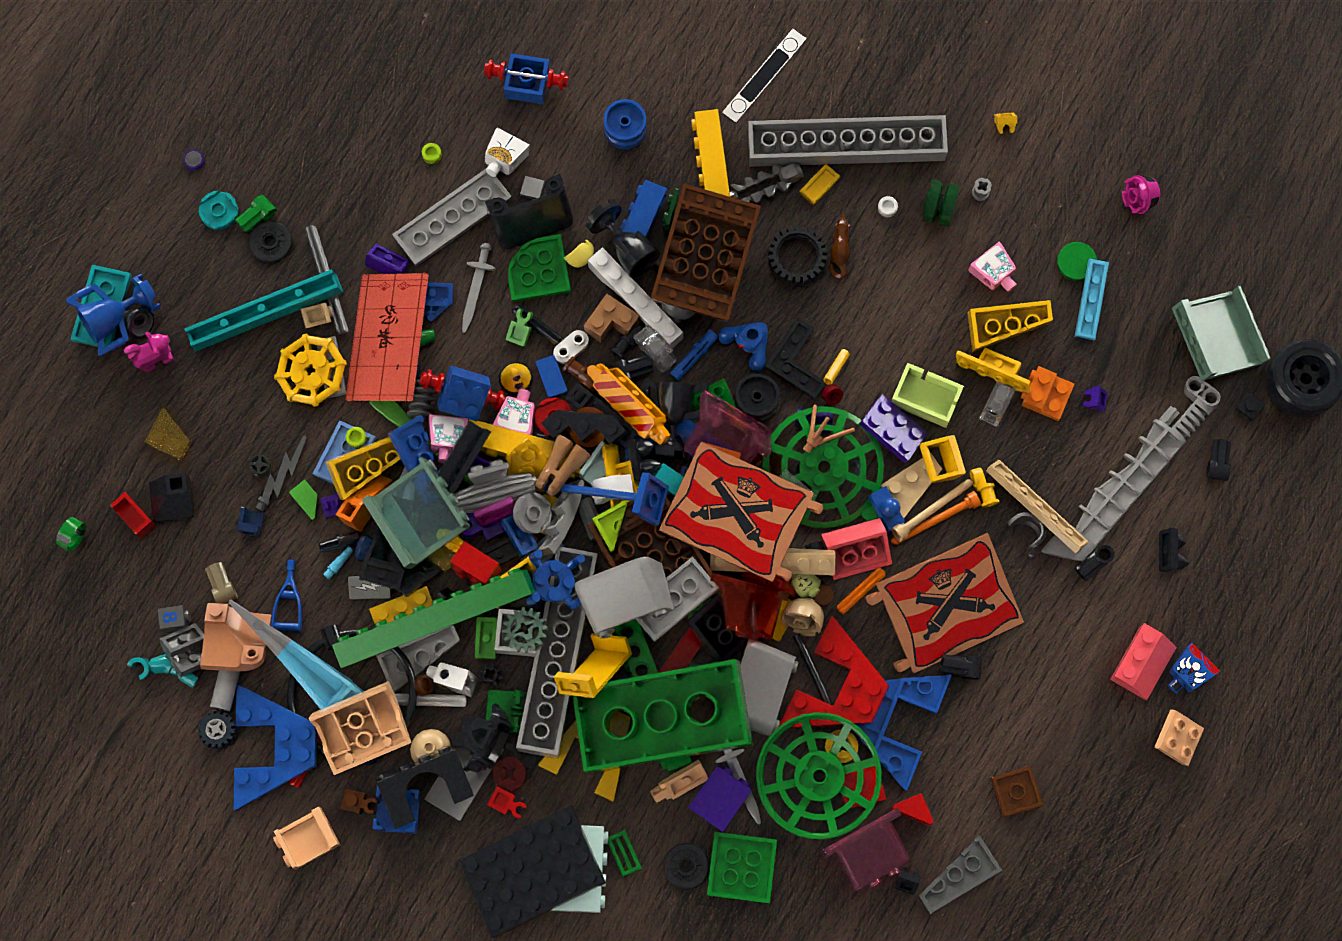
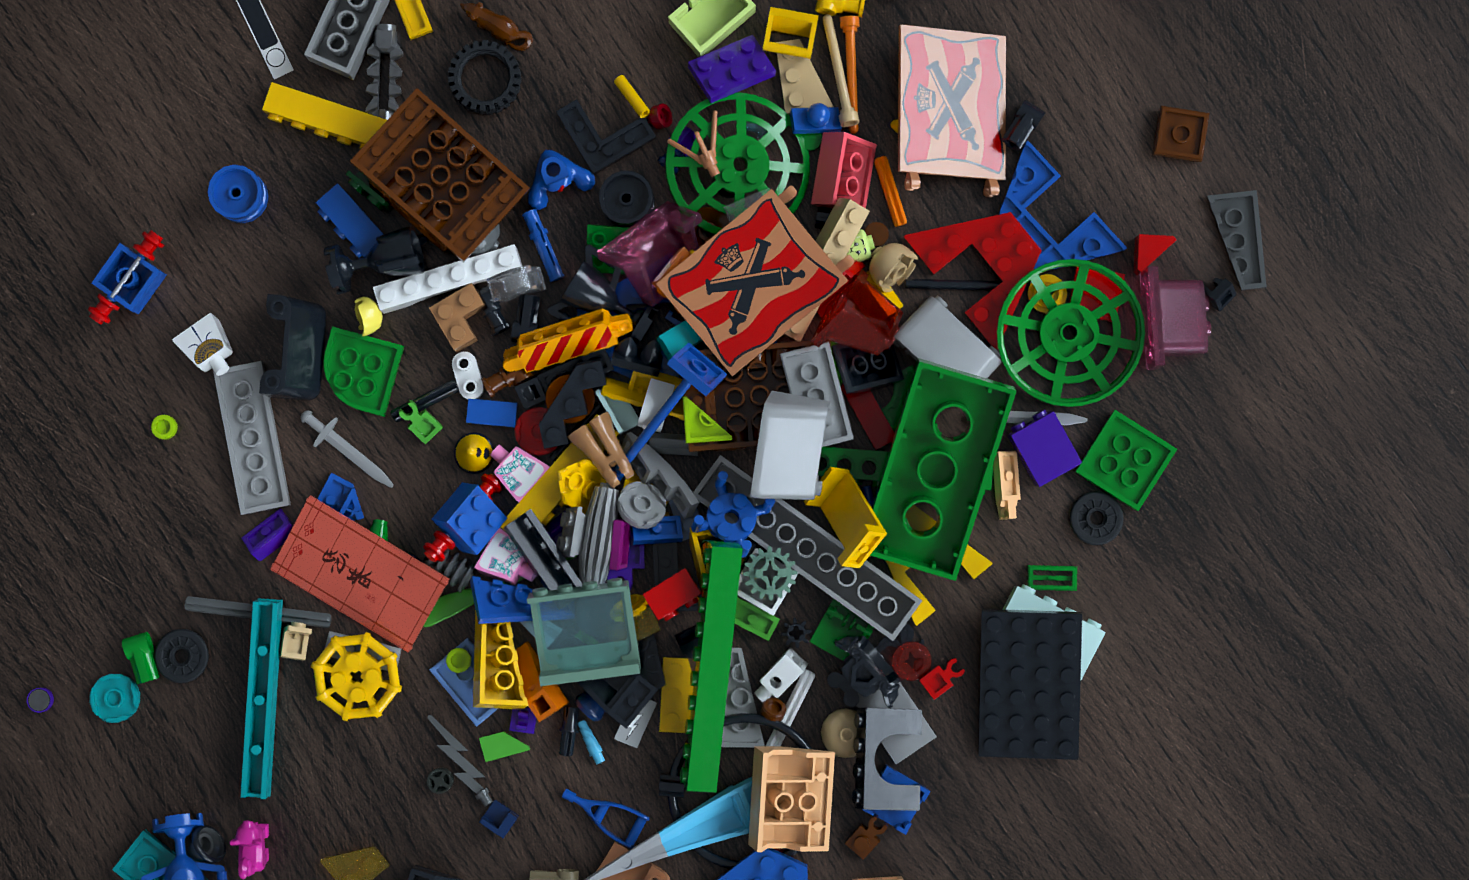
camera: 65 degrees left, 10 degrees up
(532, 188) = (261, 333): light grey tile -> none

